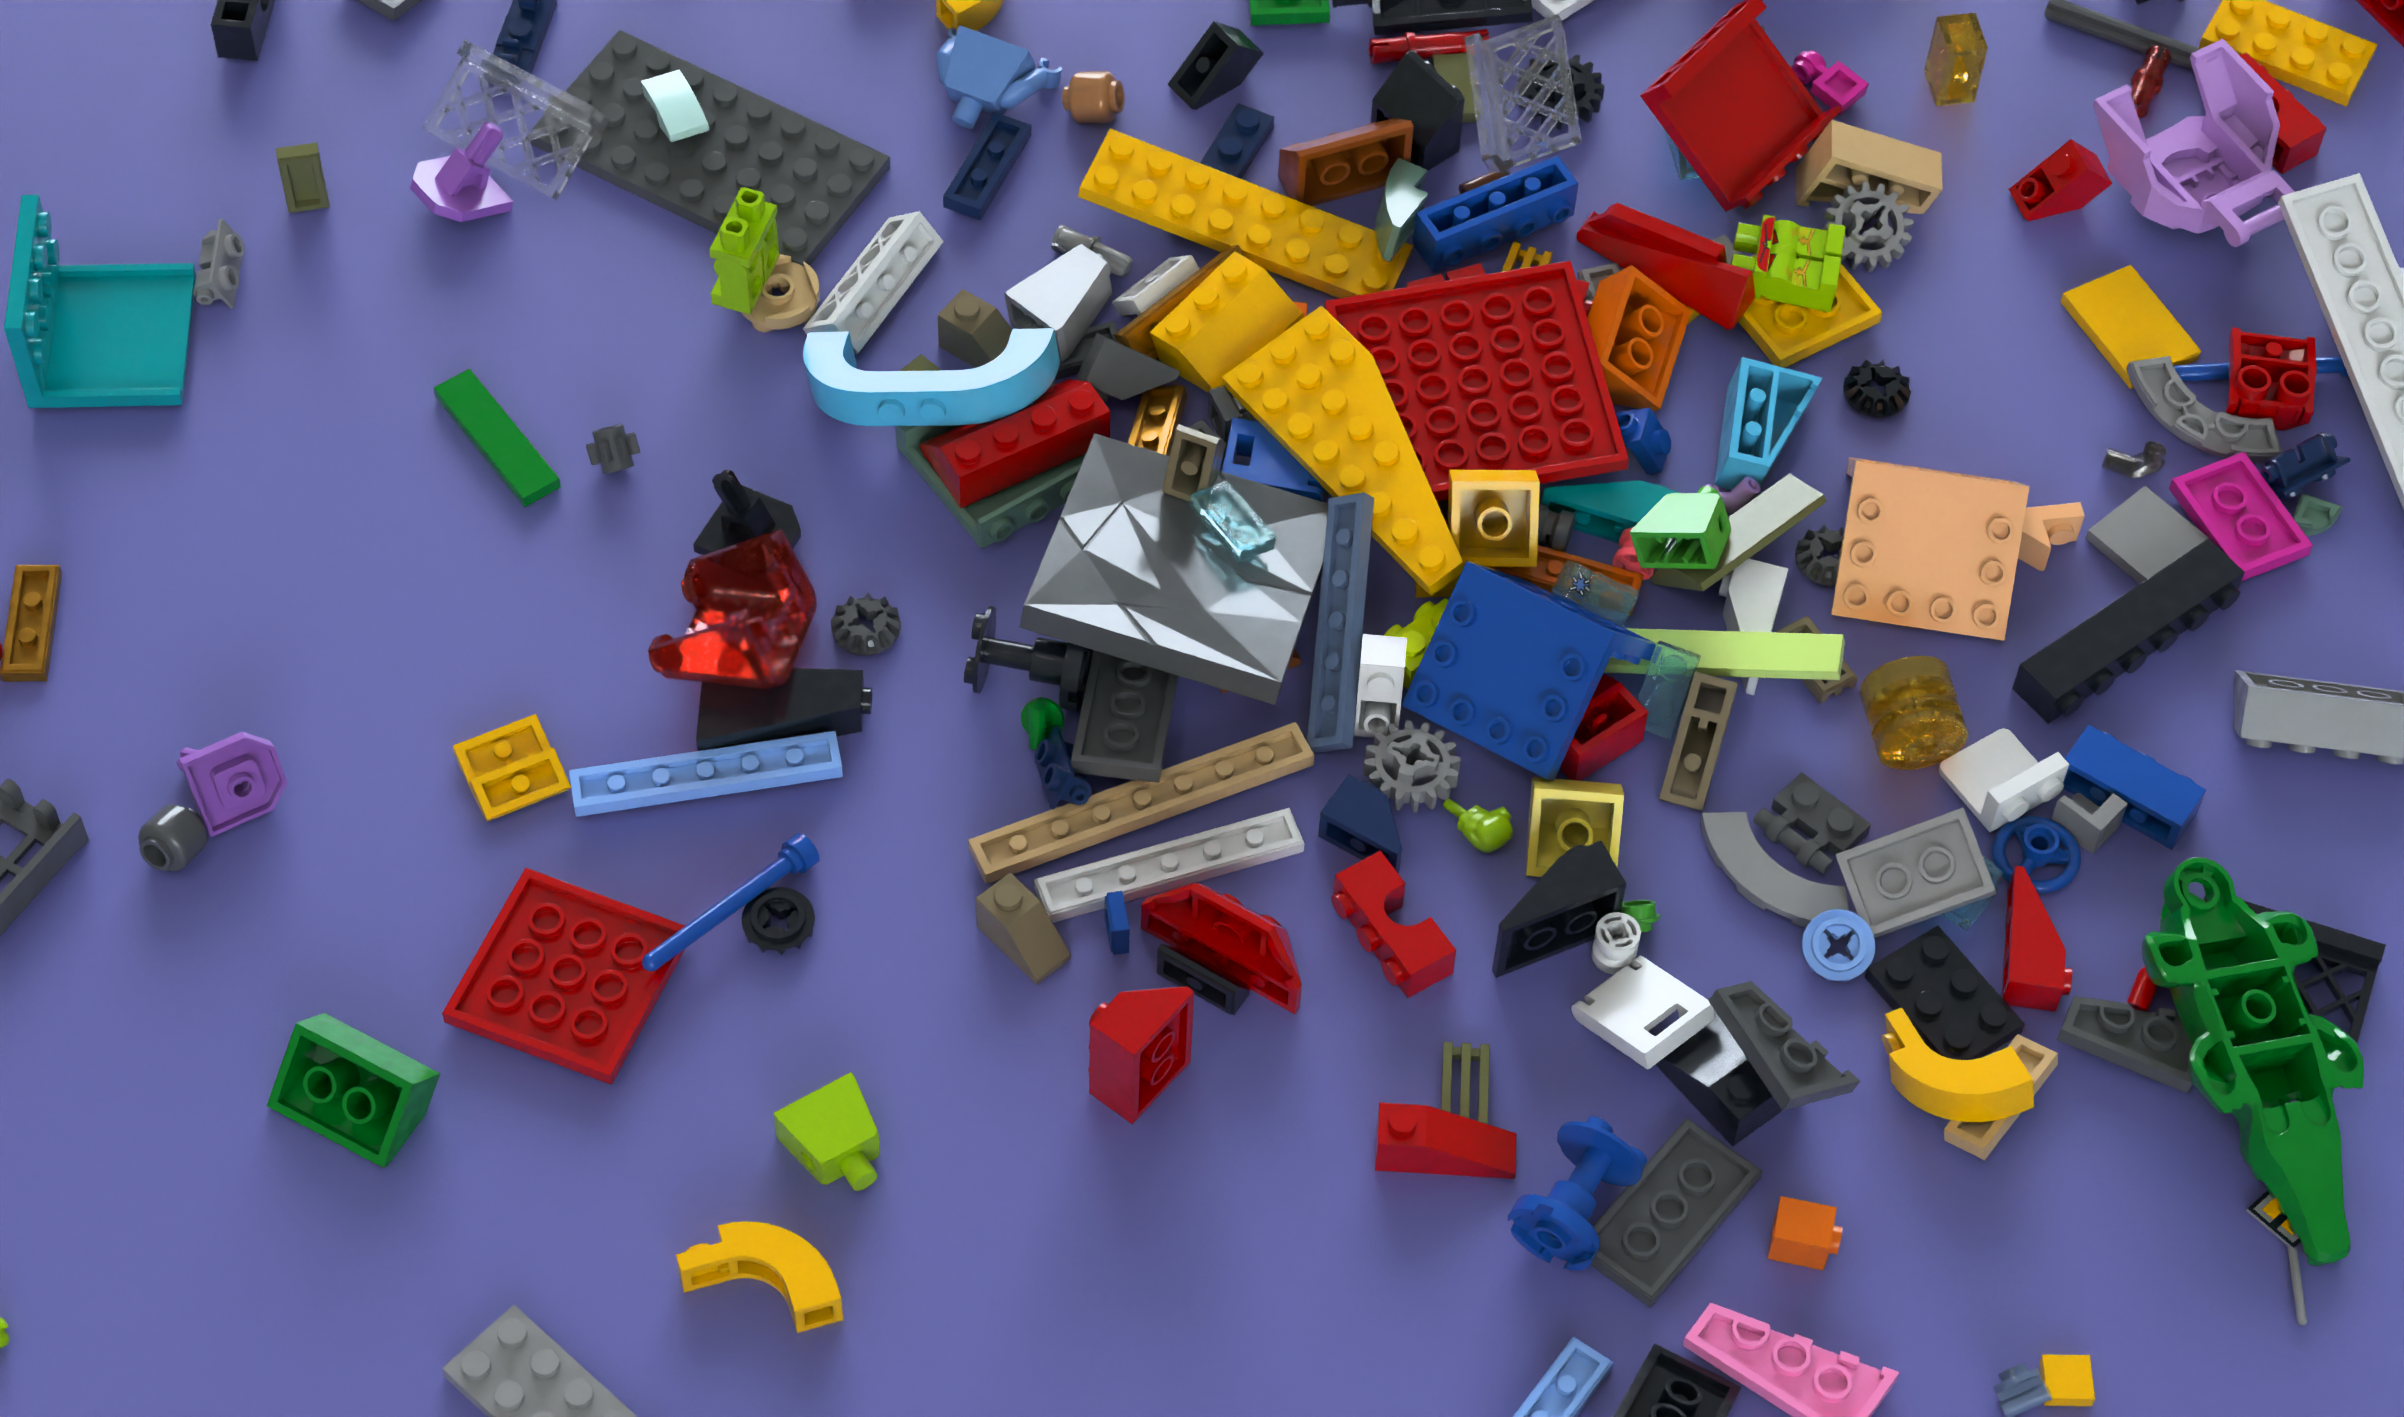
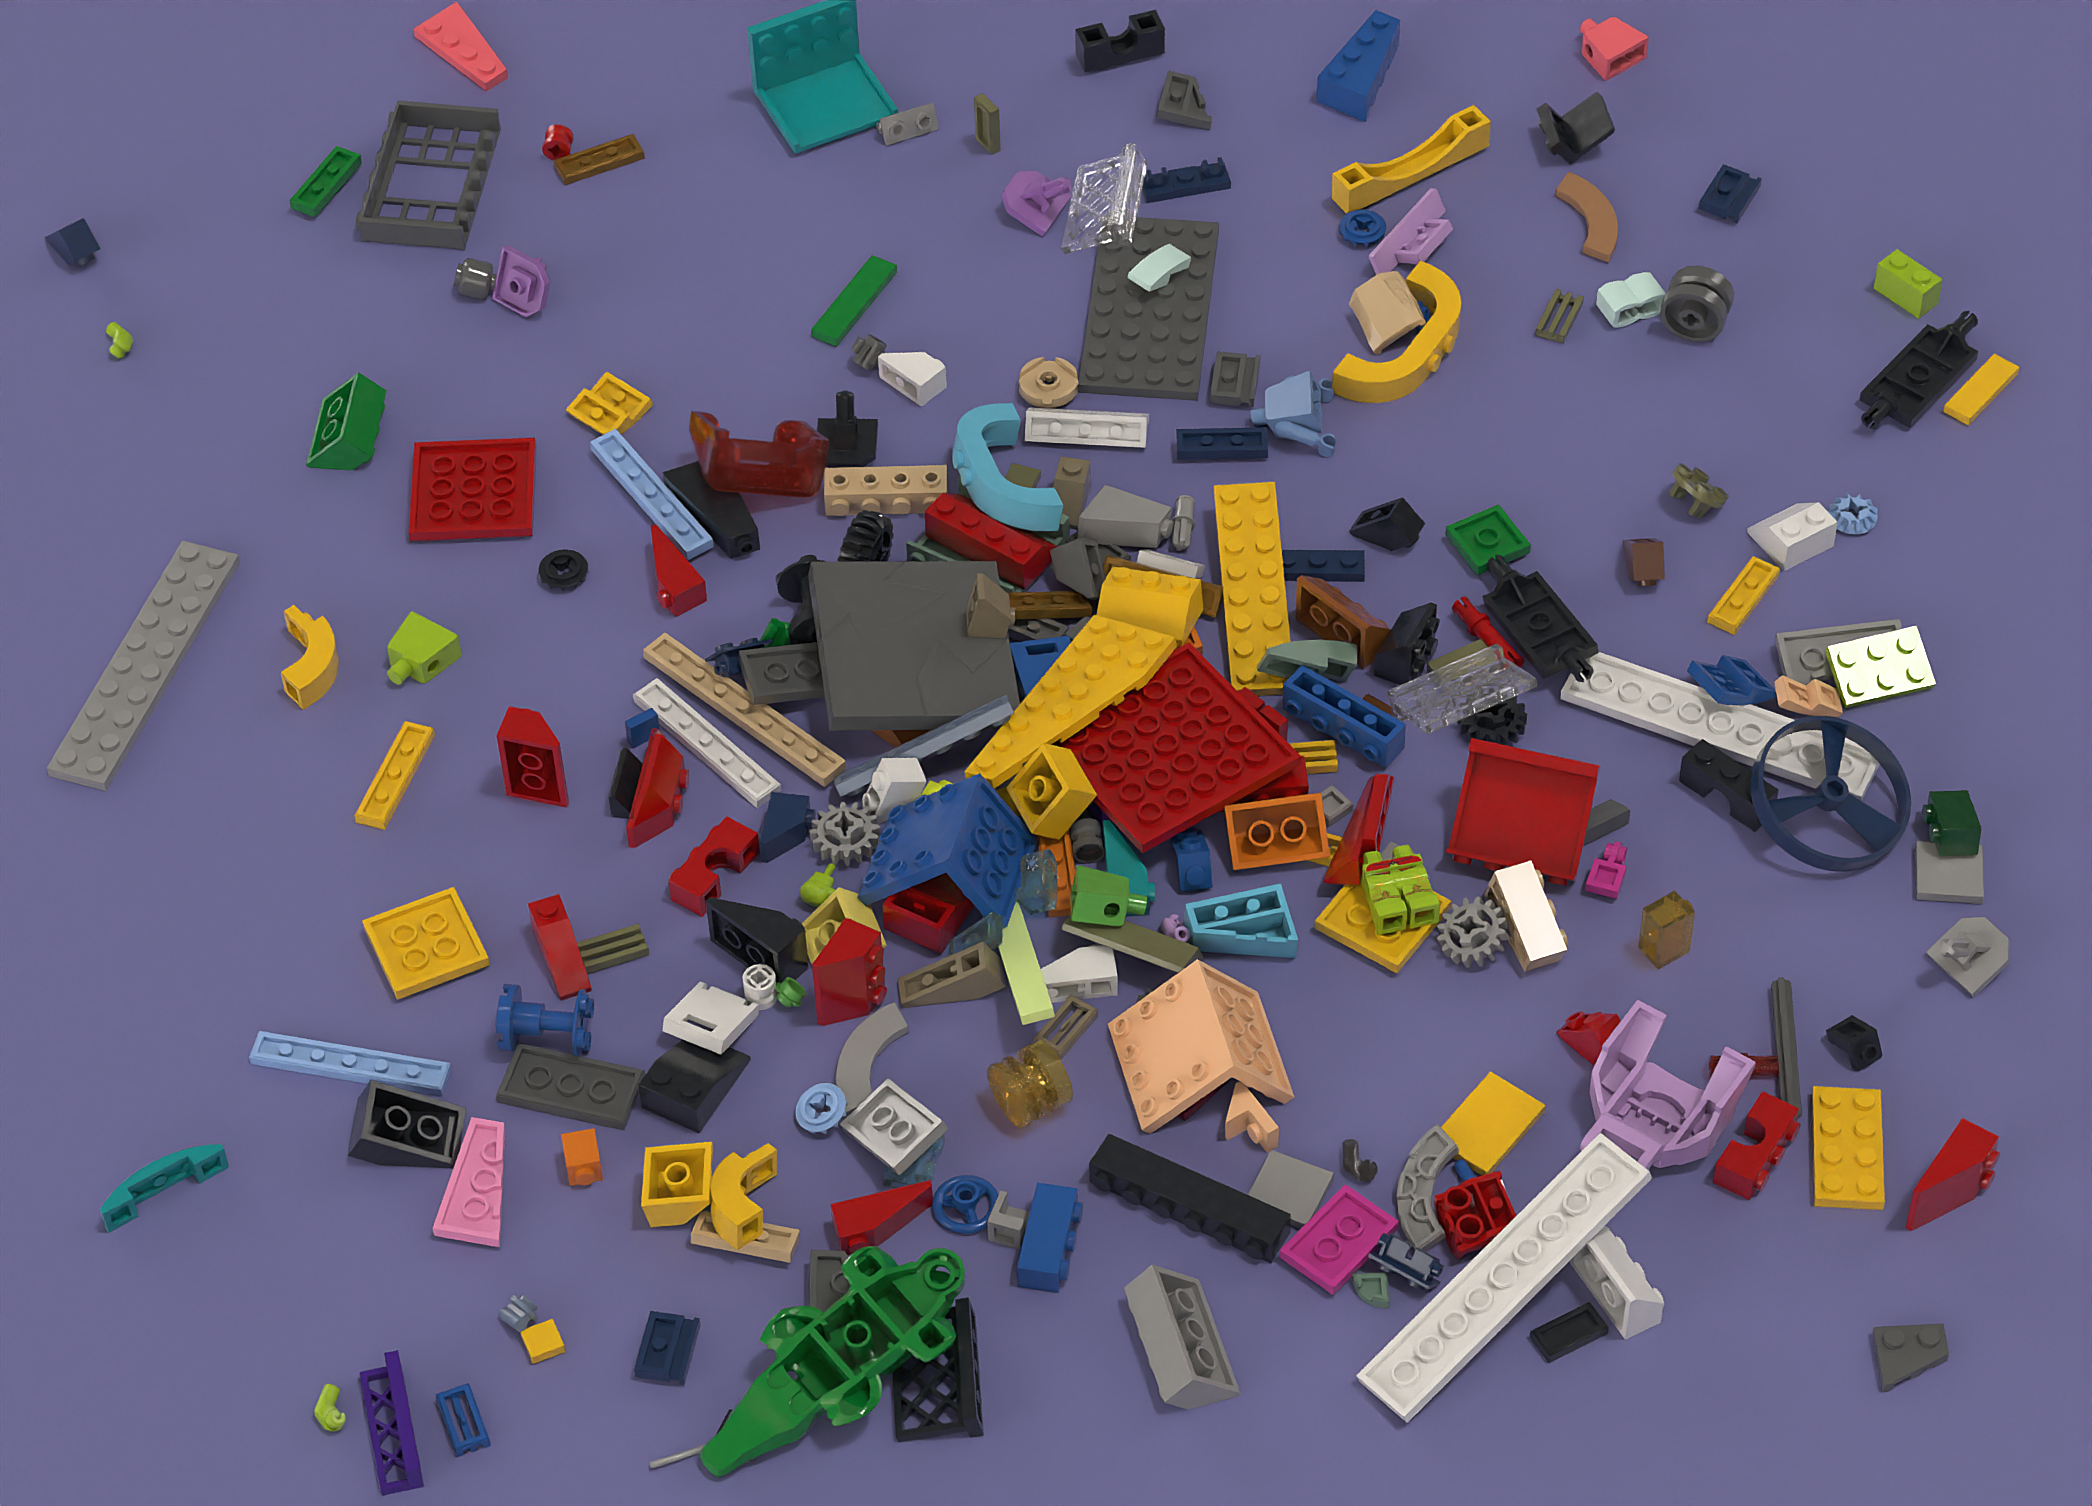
camera: 70 degrees right, 5 degrees down
(680, 420) = (913, 374): none -> white slope
(744, 251) = (1039, 329): lime hips -> none
(796, 856) = (612, 558): blue piece -> none
(857, 637) = (811, 535): dark grey gear -> none
(862, 519) = (891, 491): none -> tan brick
(867, 797) = (678, 581): none -> red slope
(890, 114) = (1234, 379): none -> dark grey plate
(971, 568) = (867, 538): none -> black gear
(1021, 928) = (613, 682): dark tan slope -> none
(1031, 1243) = (394, 775): none -> yellow tile
(1093, 97) = (1315, 472): medium nougat head -> none
(1232, 521) = (954, 650): clear light blue plate -> none
(1355, 1298) = (425, 943): none -> yellow plate
(1672, 823) = (849, 974): none -> red slope
(1782, 1058) = (690, 1079): dark grey wing -> none
(1819, 816) = (931, 1069): dark grey plate -> none
(1869, 399) = (1332, 1001): black gear -> none
(1907, 1131) = (676, 1182): none -> yellow slope
(1945, 997) = (811, 1182): black plate -> none
(2002, 778) = (1014, 1160): white bracket -> none
(2136, 1241) = (667, 1347): none -> dark blue plate

